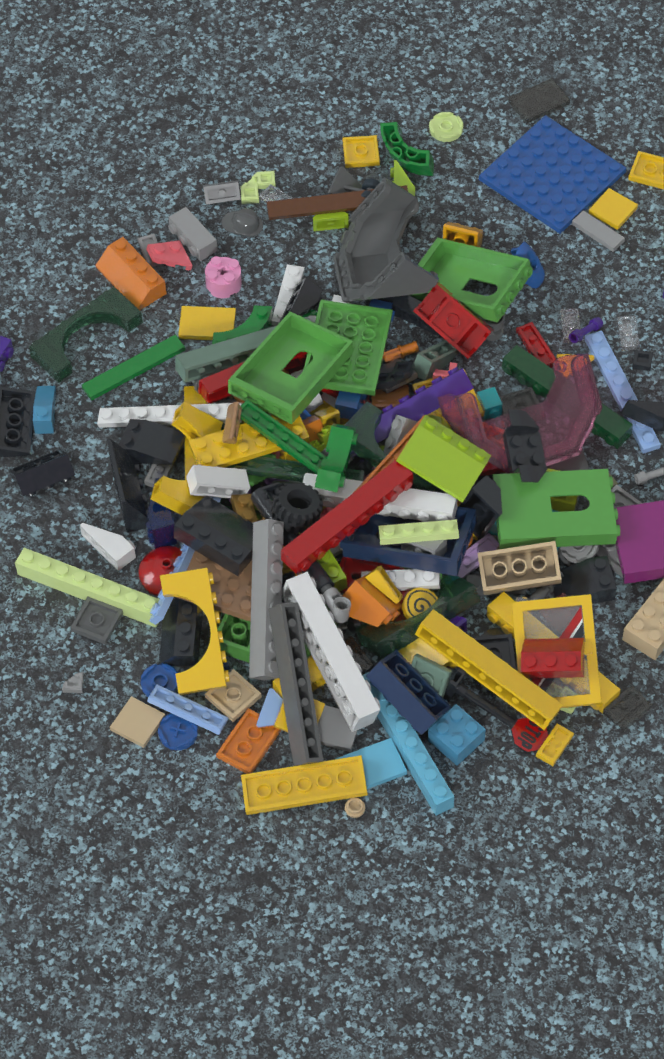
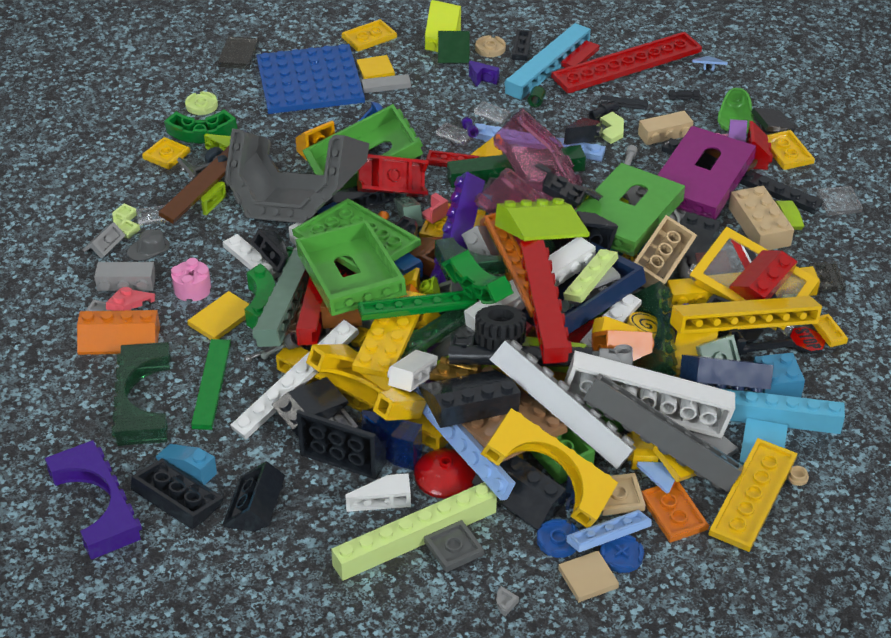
camera: 55 degrees left, 15 degrees down
(232, 423) = (373, 321): medium nougat slope -> none

